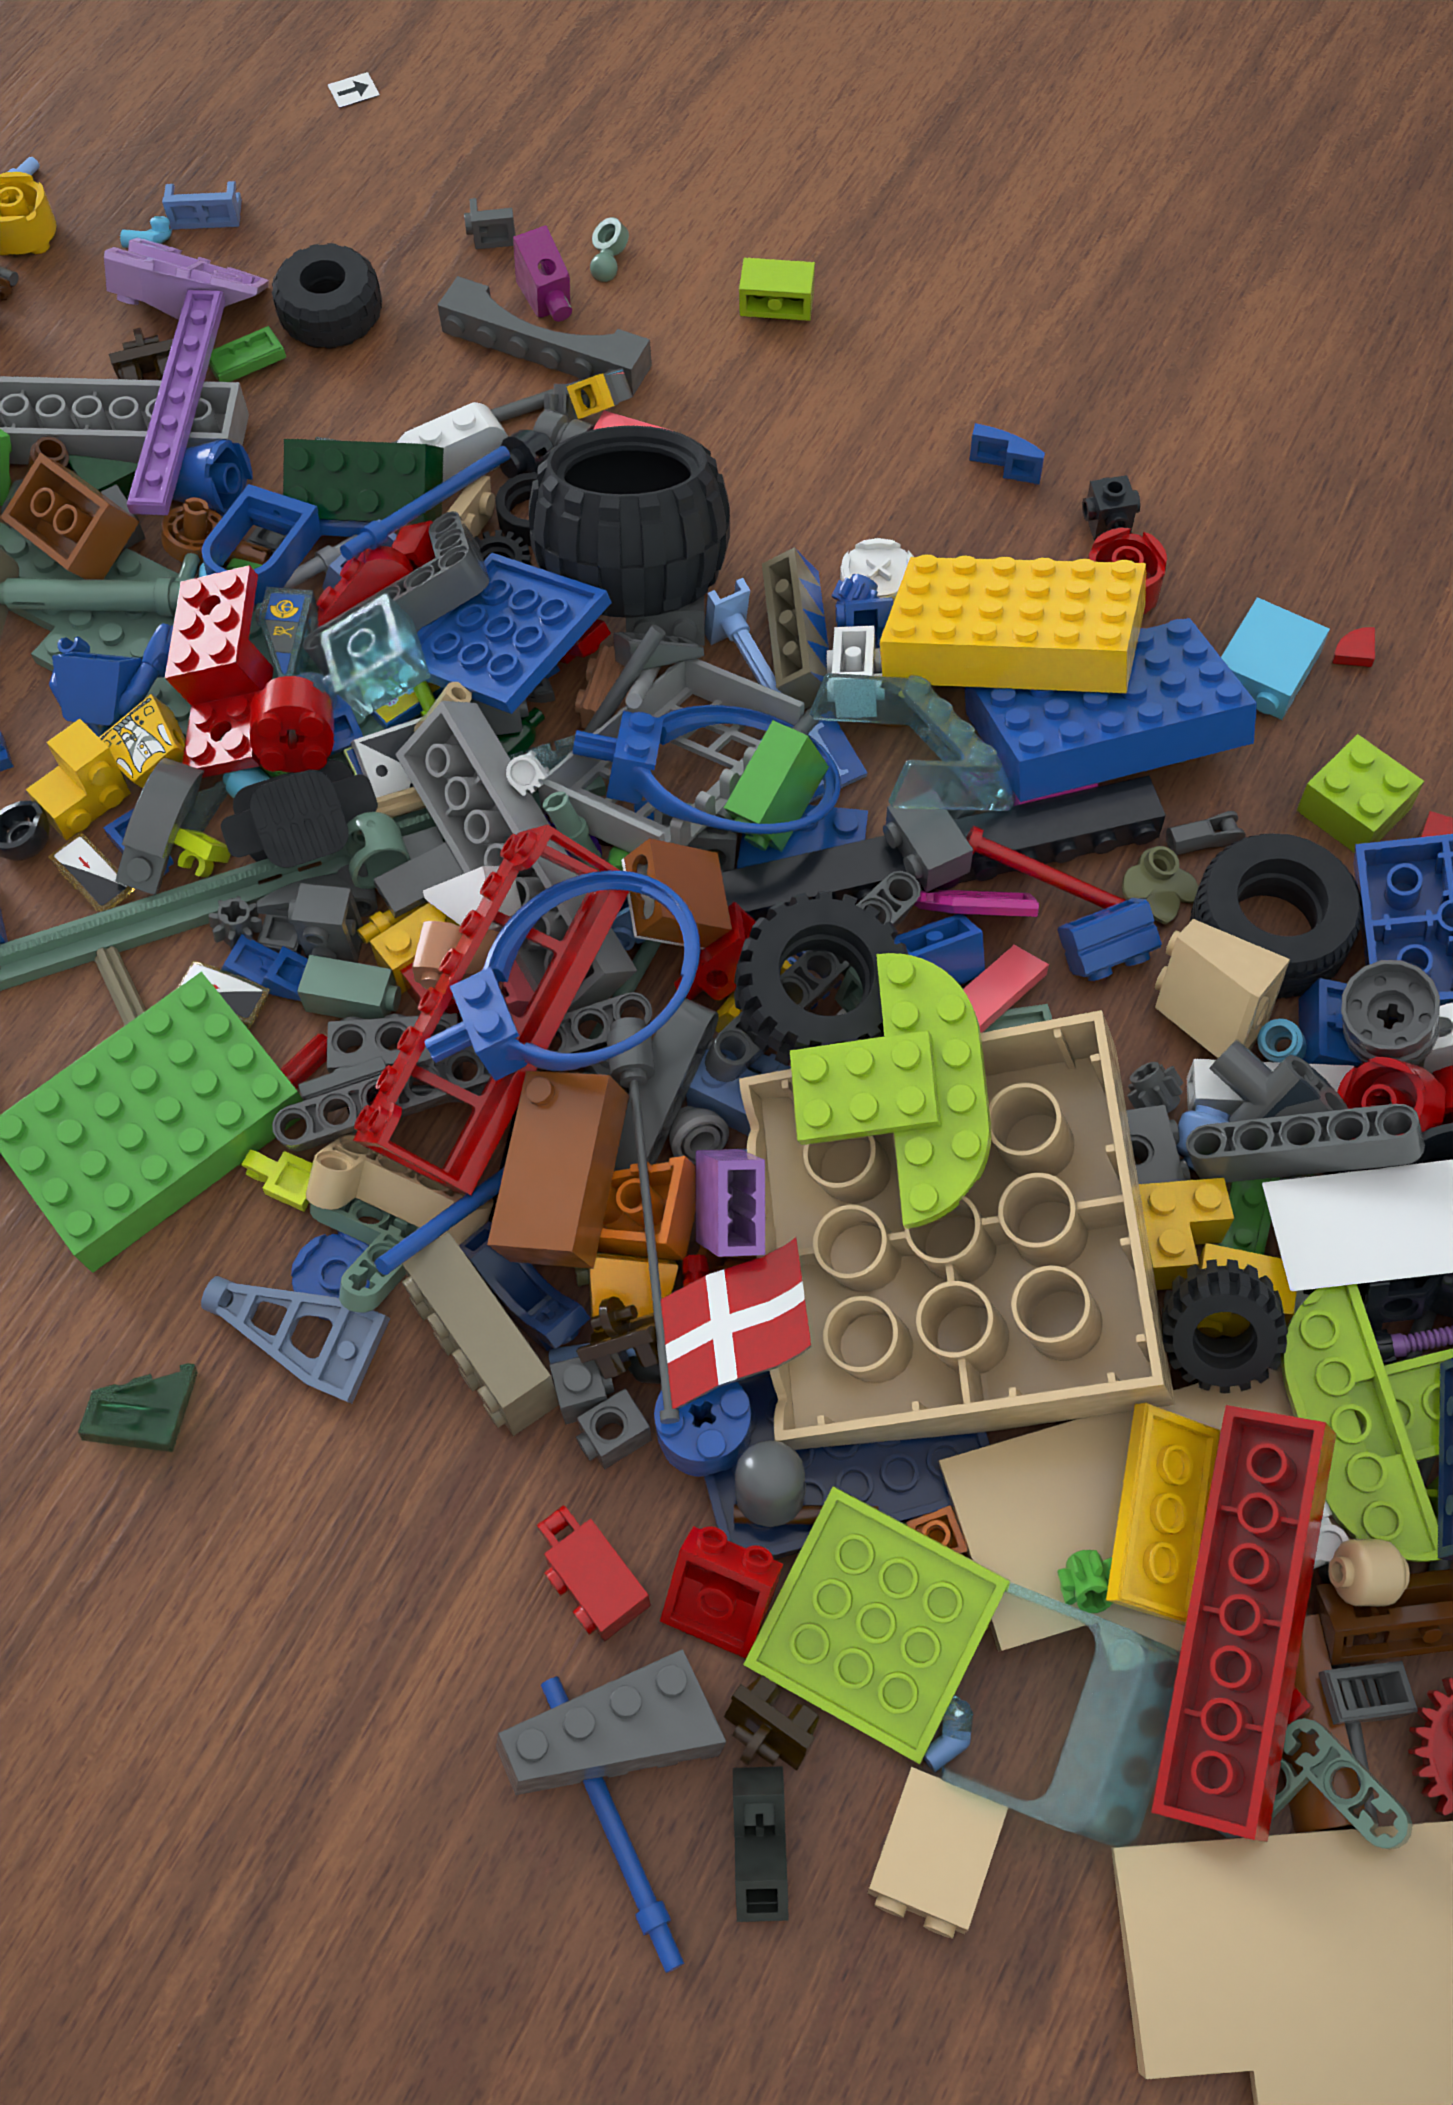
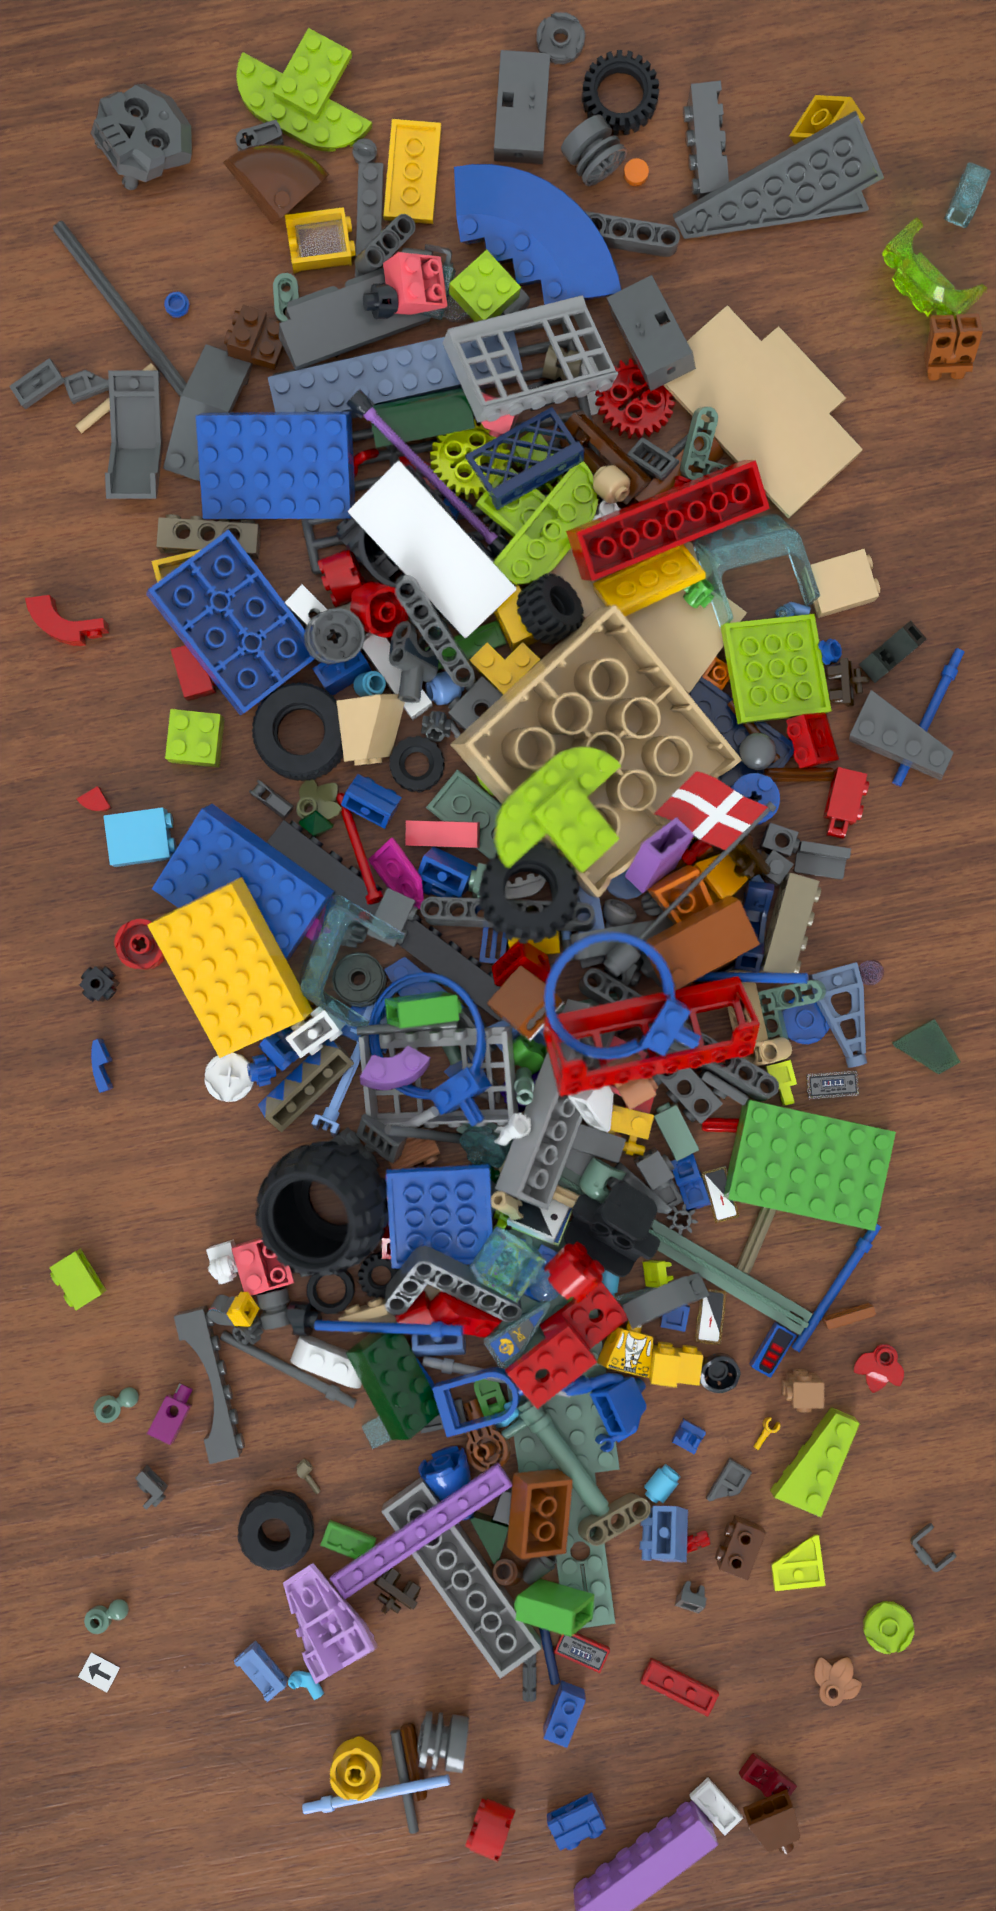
camera: 130 degrees left, 25 degrees up
(219, 1241) = (832, 1084): none -> tile
(315, 1413) = (871, 972): none -> clear purple tile
(360, 364) = (303, 1471): none -> dark tan hand
(403, 115) = (117, 1610): none -> sand green plate
(535, 1473) = (821, 860): none -> dark grey panel
(658, 409) = (222, 1262): none -> white brick
(697, 1513) = (799, 774): none -> reddish brown axle
(728, 696) = (394, 1071): none -> medium lavender brick
(835, 1752) = (830, 651): none -> blue plate
(872, 749) = (348, 969): none -> pearl dark grey wheel
(1128, 853) = (316, 824): none -> dark green slope
(1139, 1008) = (409, 746): none -> black tyre

